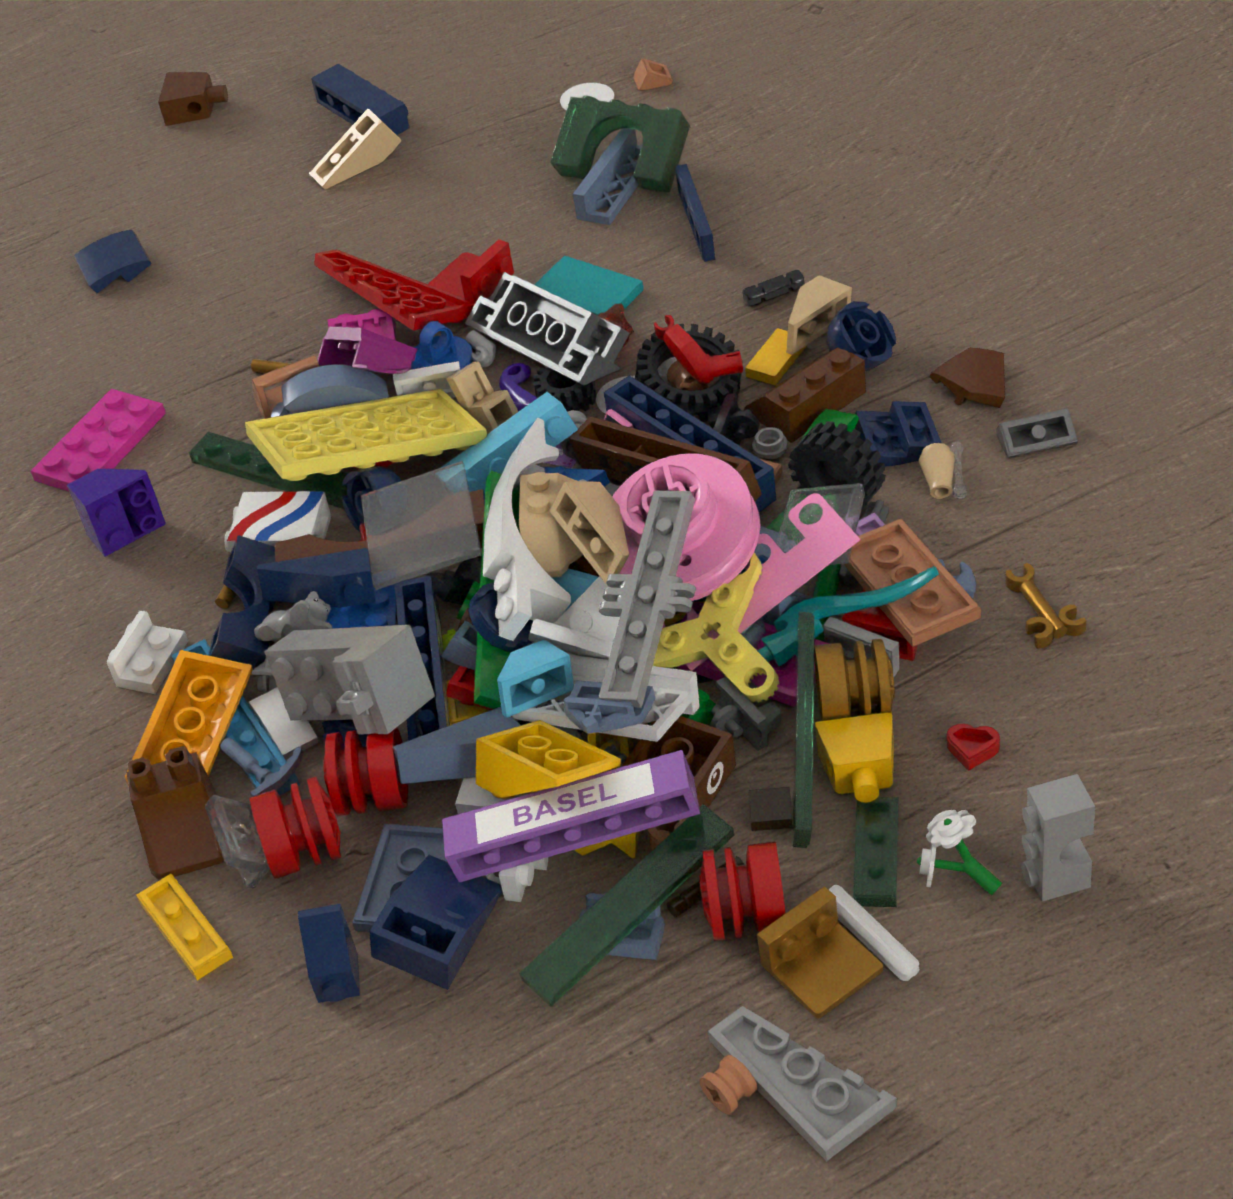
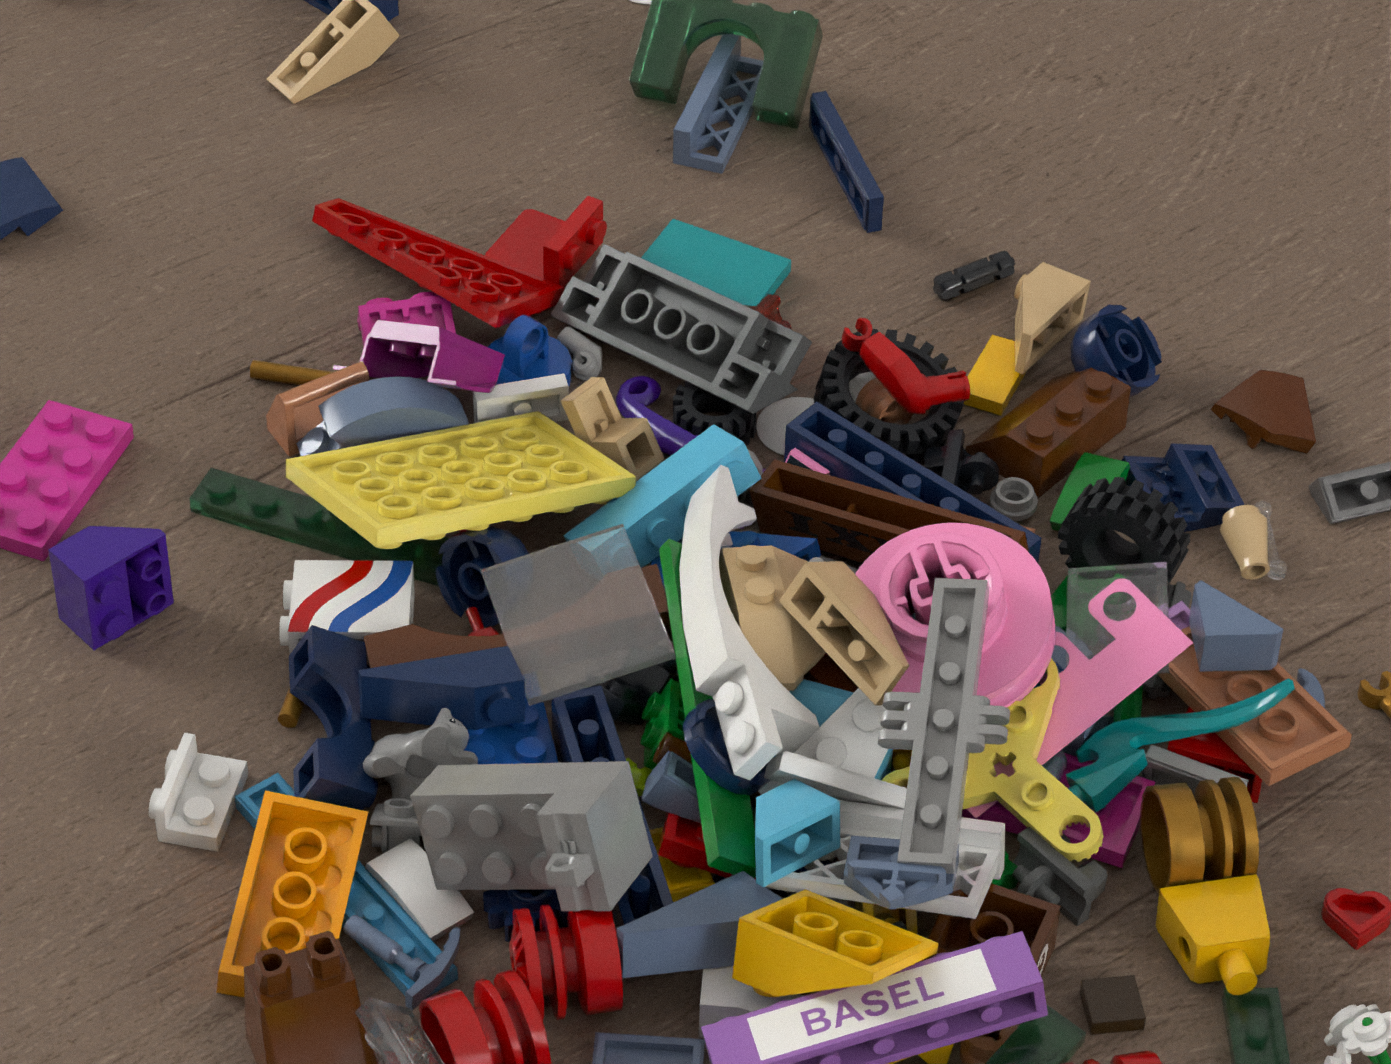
camera: 15 degrees left, 0 degrees up
(803, 730) = (1149, 899): clear green tile -> none
(898, 534) = (1230, 634): none -> sand blue slope

